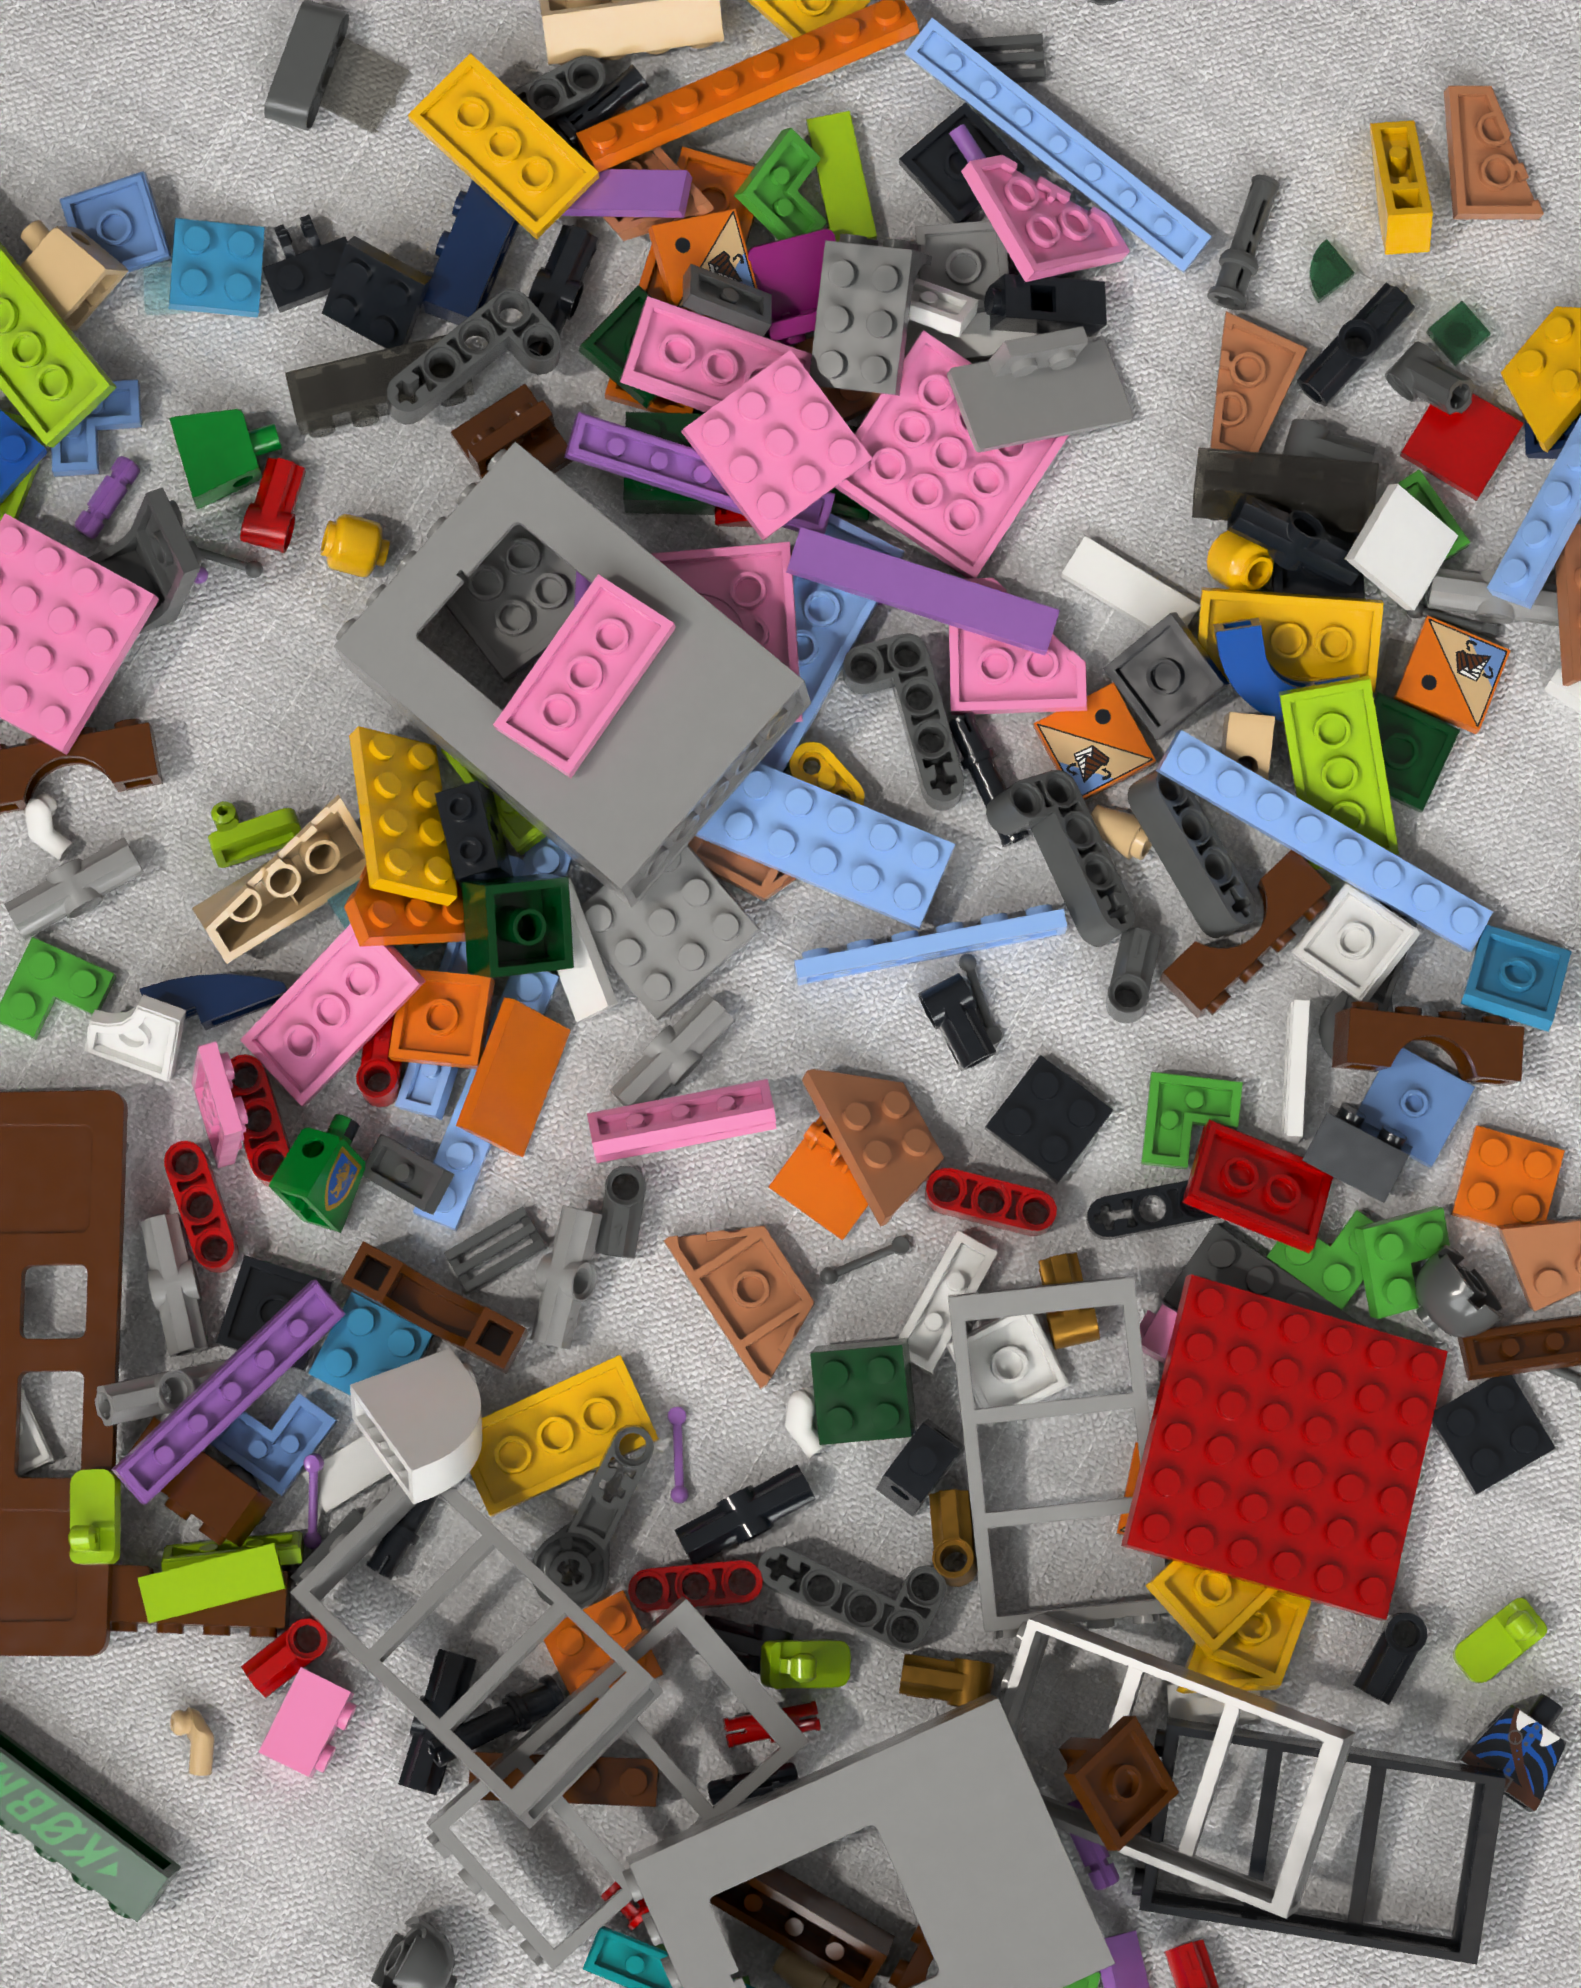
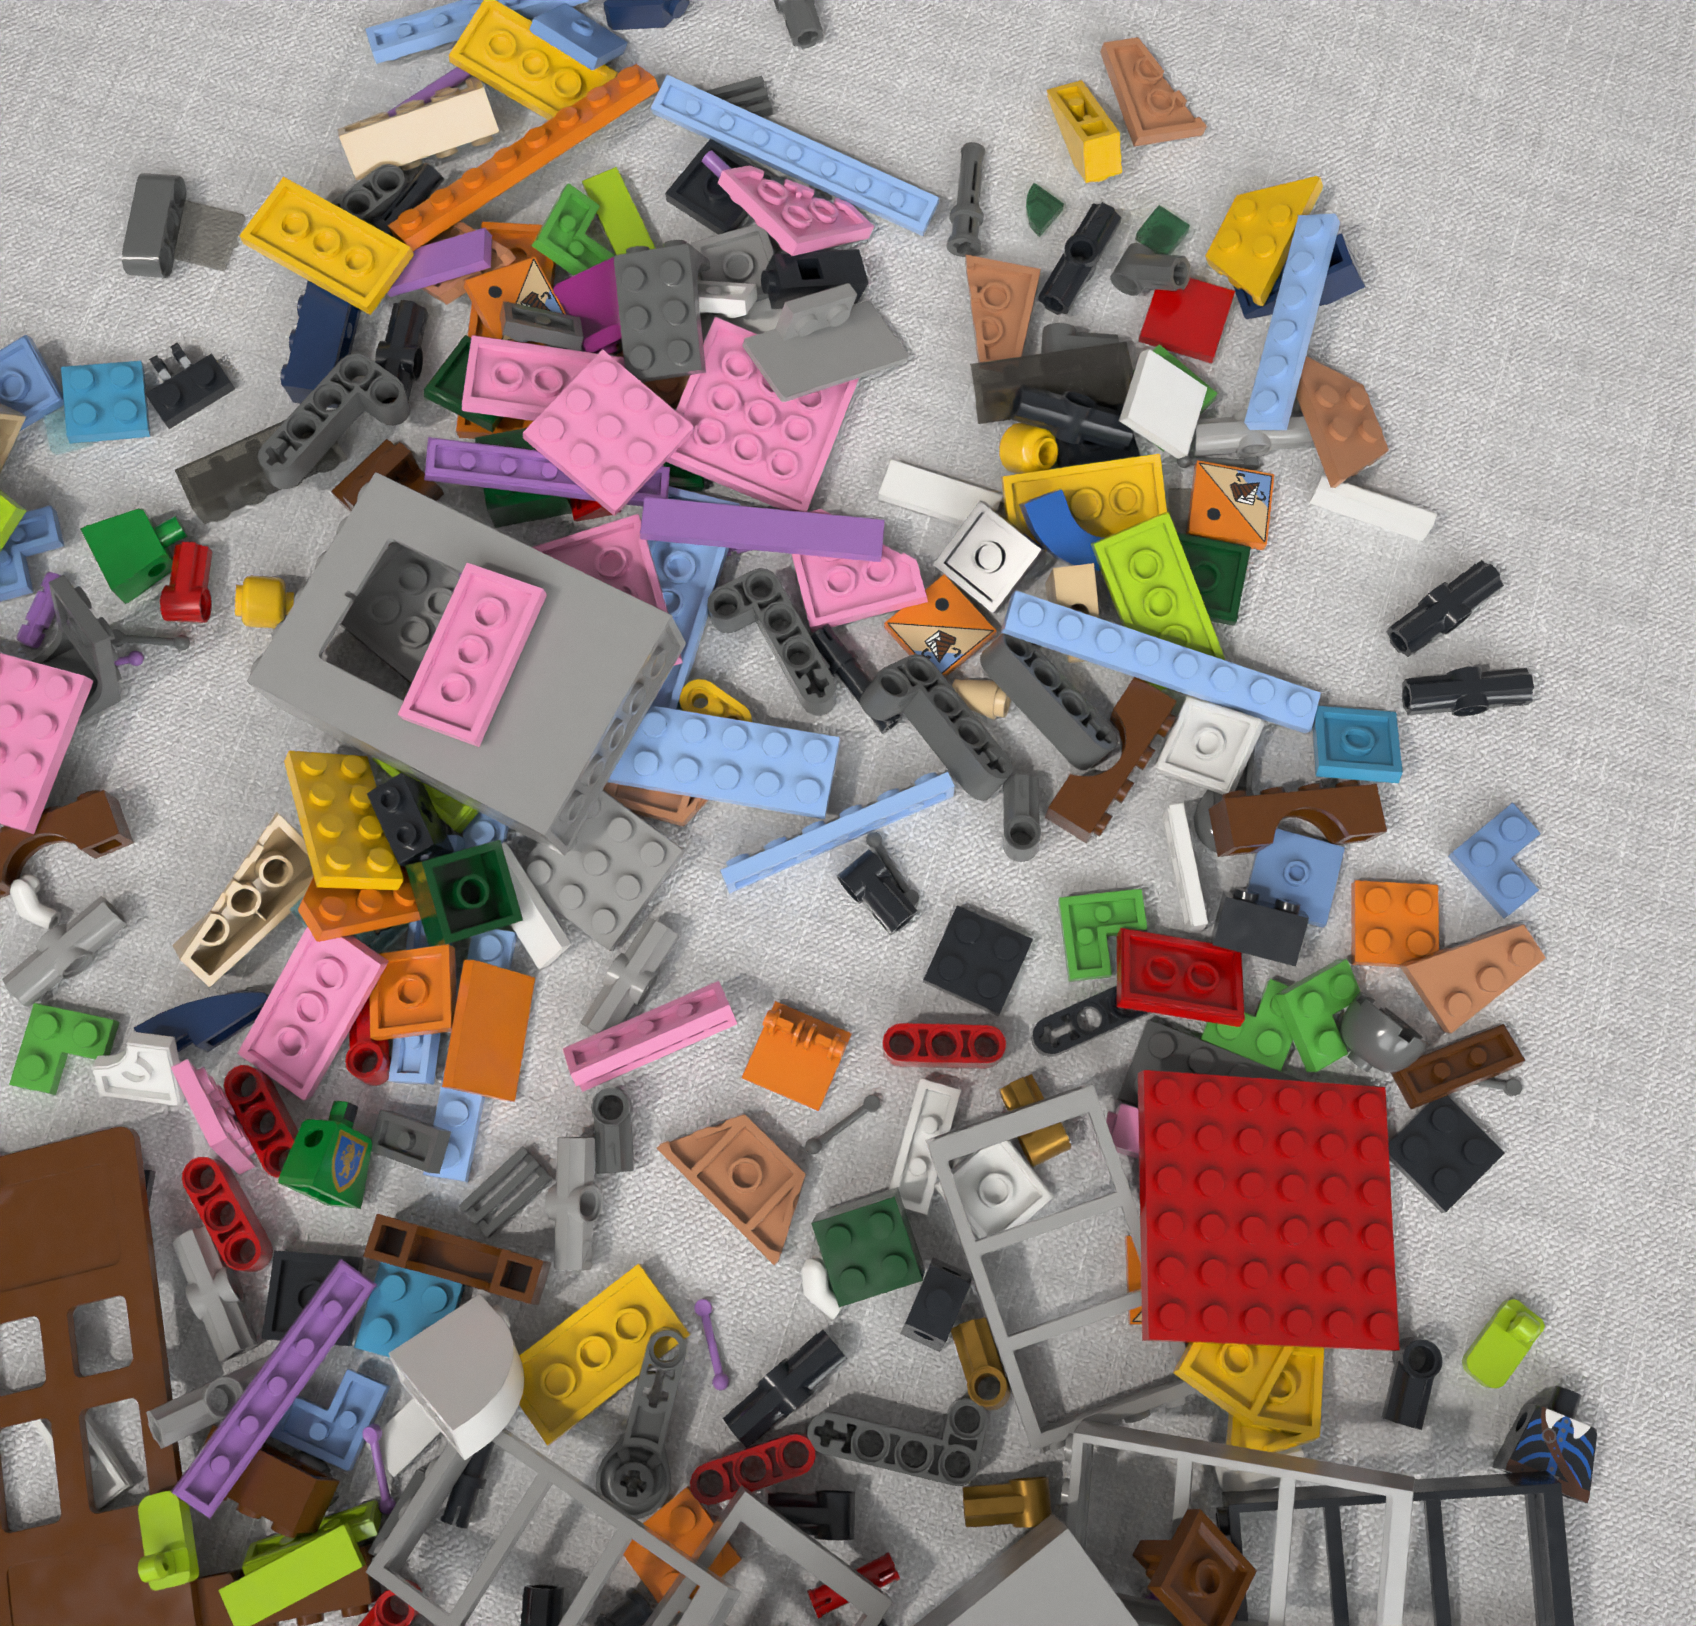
camera: 10 degrees left, 5 degrees down
(252, 838) = (210, 875): lime piece -> none
(376, 294) = (242, 389): black plate -> none
(805, 1663) = (871, 1520): lime piece -> none
(877, 1136) = (828, 1009): nougat wing -> none

